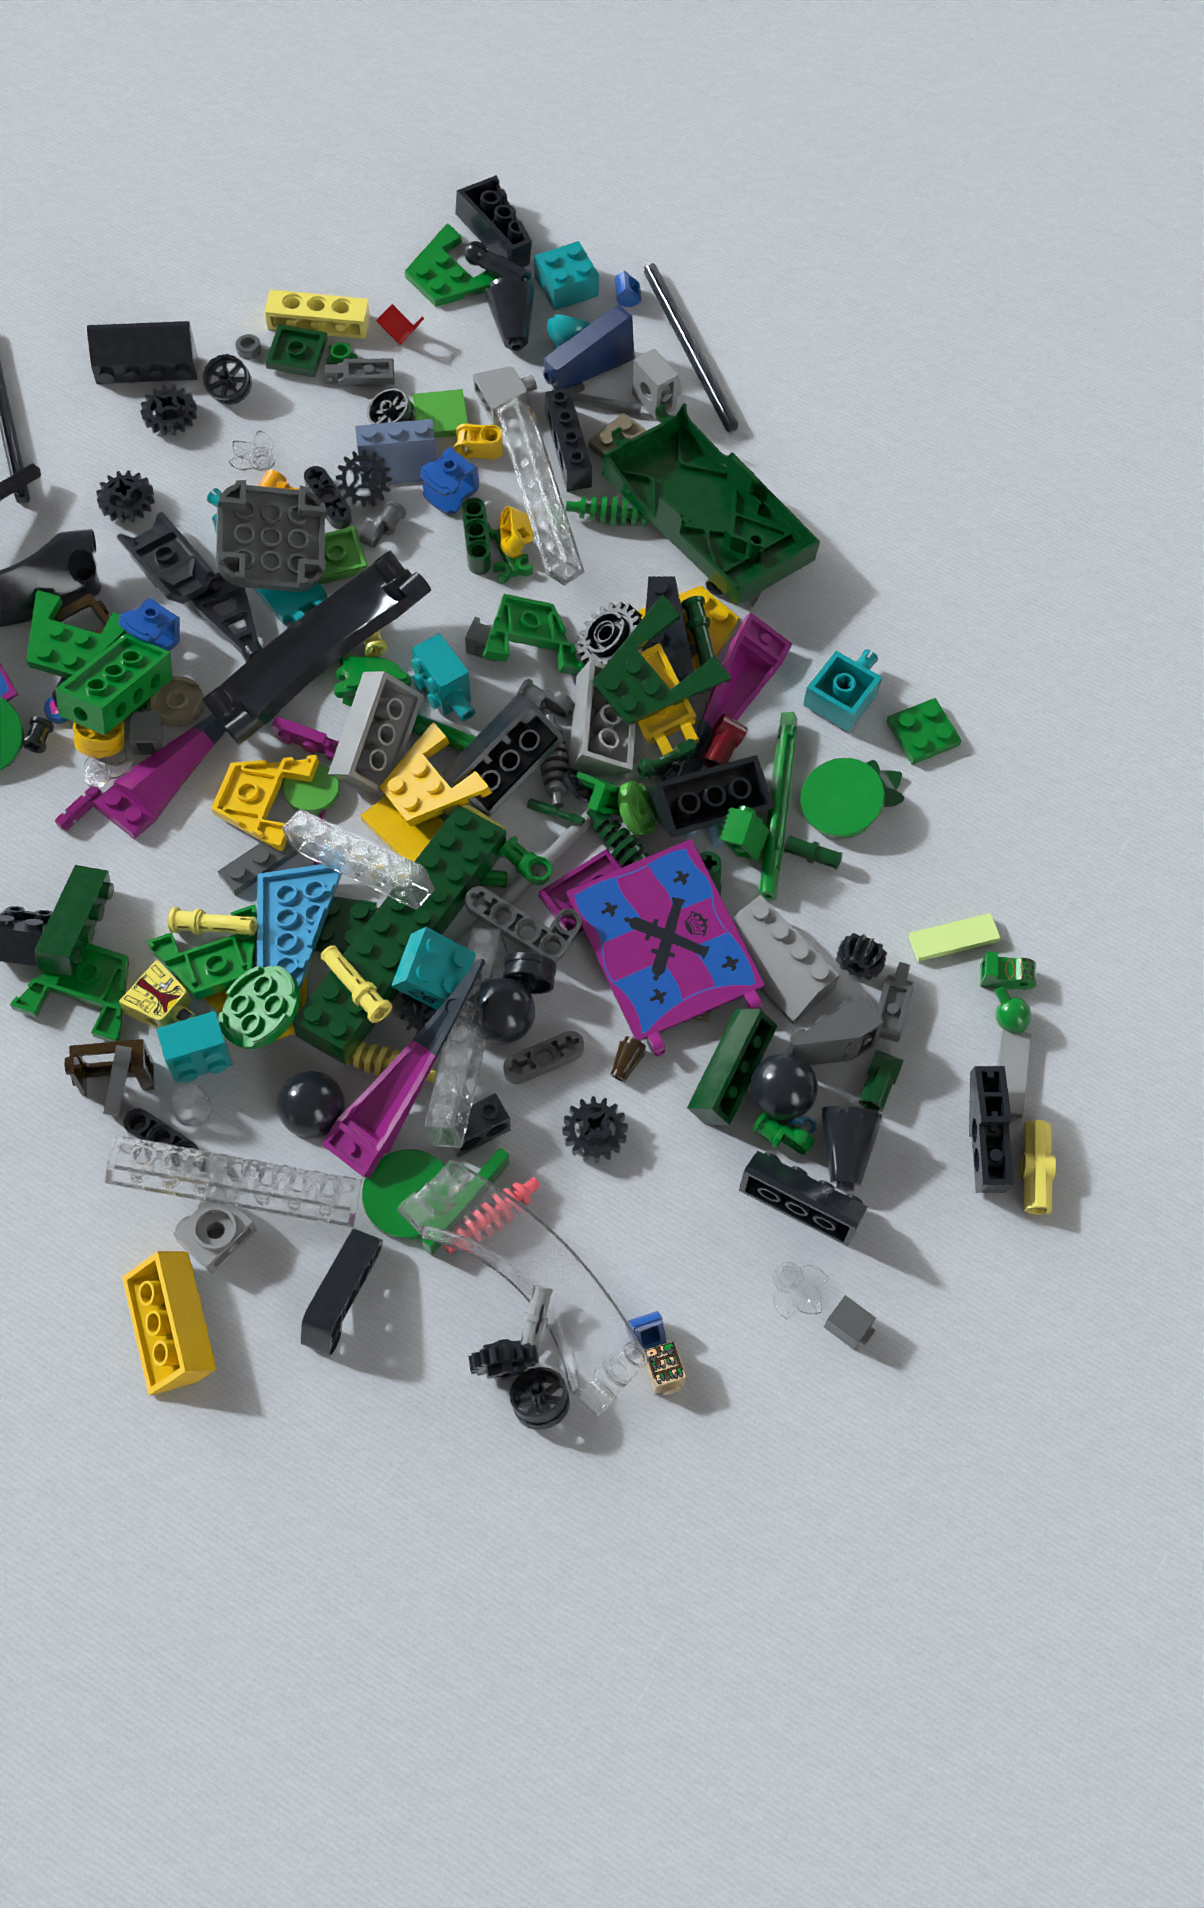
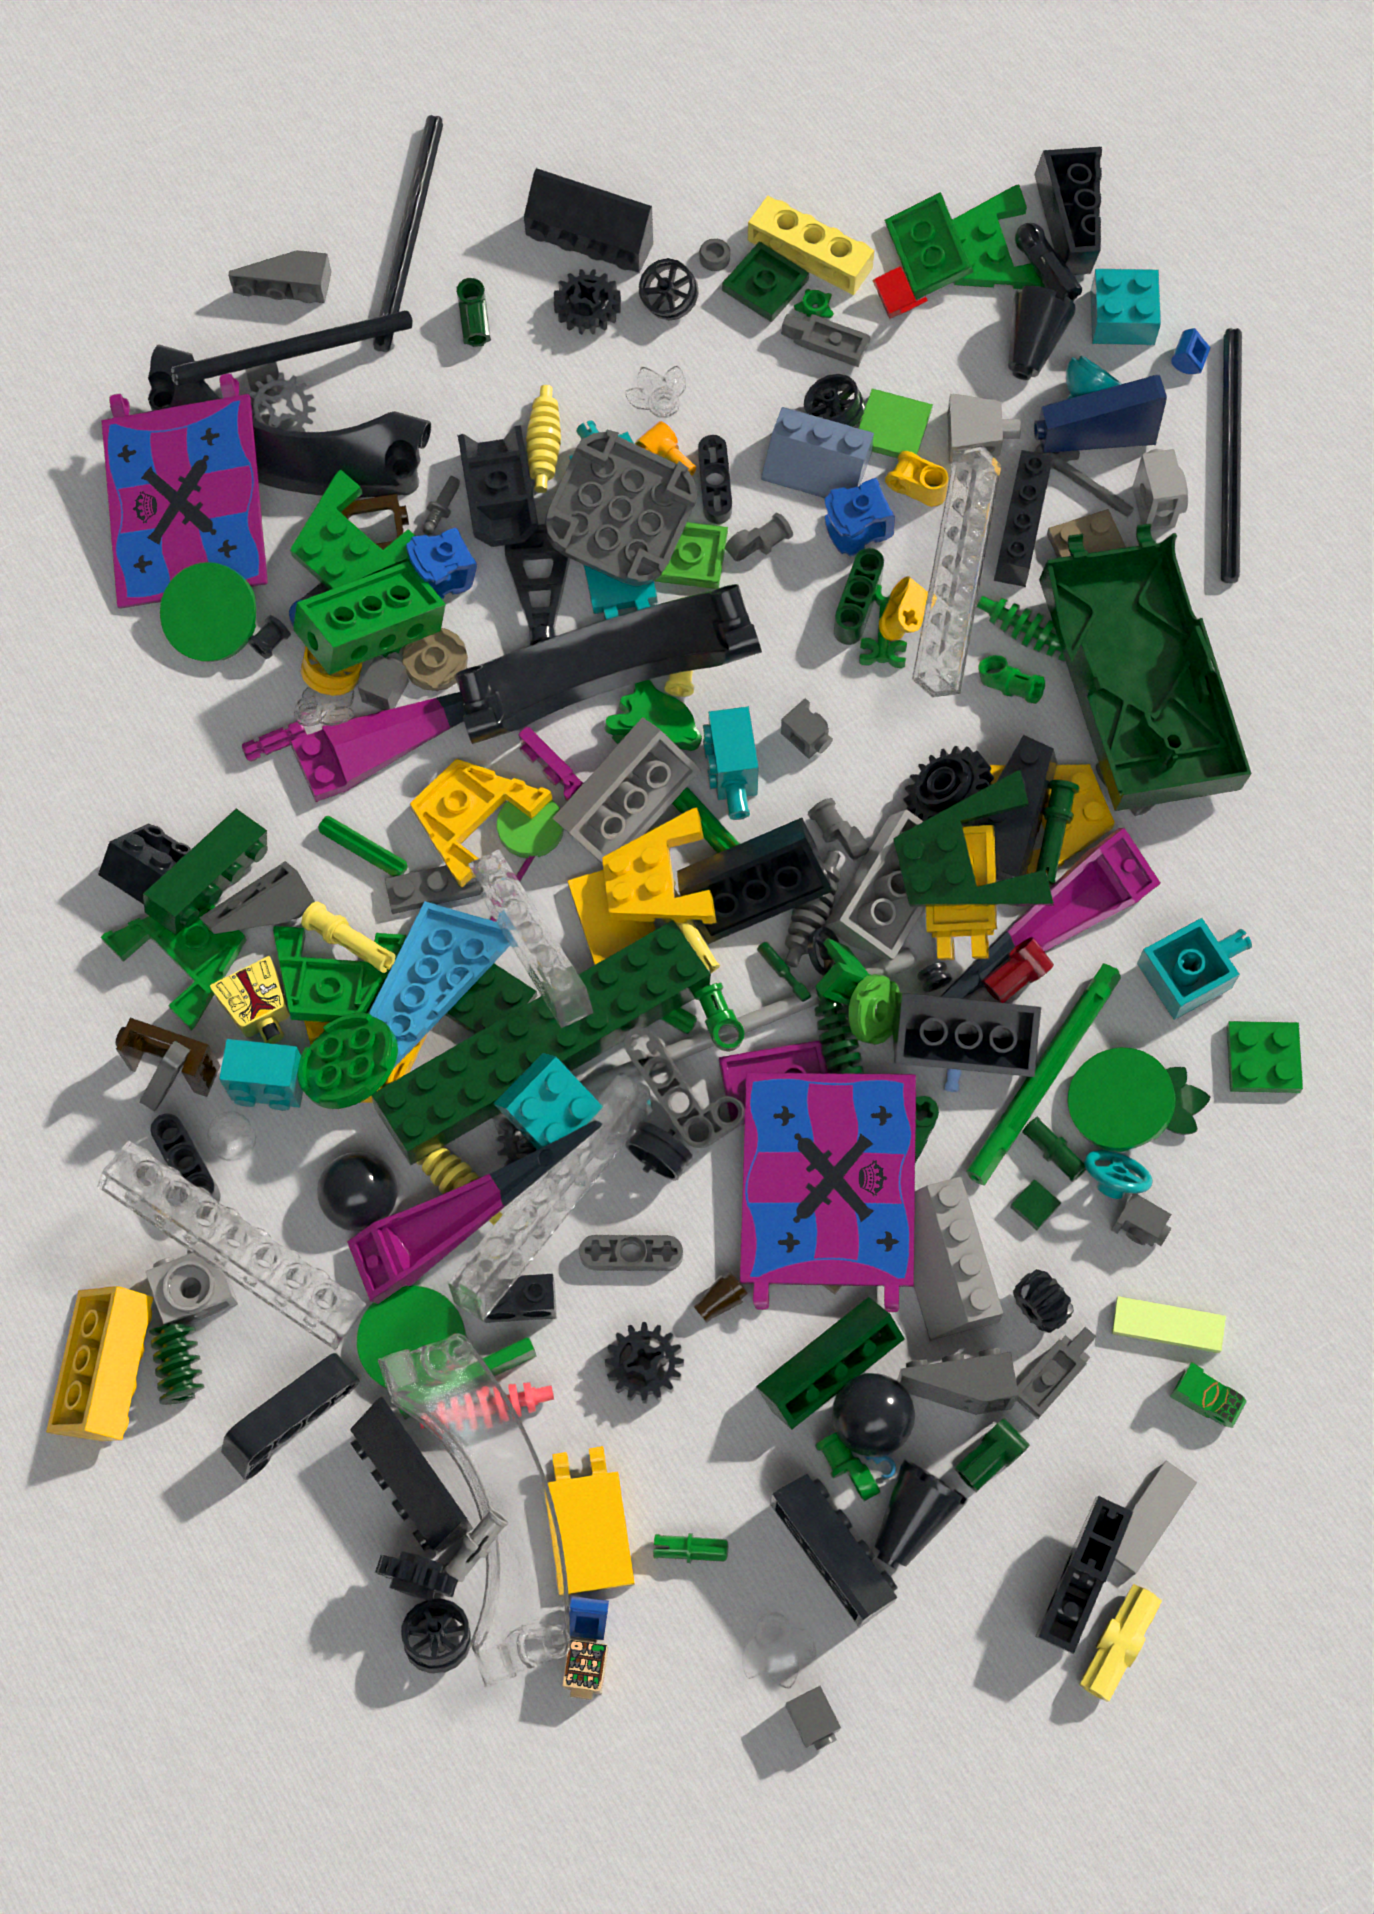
camera: 30 degrees right, 5 degrees up
(84, 448) = (473, 312): none -> dark green piece
(126, 594) = (439, 508): none -> dark grey piece
(136, 919) = (267, 901): none -> dark grey slope
(138, 499) = (491, 389): black gear -> none
(183, 514) = (543, 438): none -> light yellow piece
(187, 855) = (362, 846): none -> green axle
(230, 1293) = (175, 1363): none -> dark green piece
(355, 469) = (757, 460): black gear -> none
(363, 992) = (457, 1099): light yellow pin -> none
(404, 284) = (928, 246): none -> green tile
(460, 1290) = (410, 1478): none -> black slope
(506, 1010) = (609, 1183): black piece -> none
(530, 624) = (865, 732): green wing -> none
(615, 550) = (1011, 680): none -> green connector
(616, 1262) = (591, 1525): none -> yellow tile
(681, 753) = (956, 964): dark green hinge -> none
(698, 1245) = (691, 1548): none -> green axle
(744, 833) = (981, 1094): green brick -> none
(819, 896) = (1035, 1204): none -> dark green tile
(866, 849) = (1116, 1179): none -> teal piece
(901, 873) = (1143, 1222): none -> dark grey brick
(1012, 1013) = (1186, 1448): green piece -> none

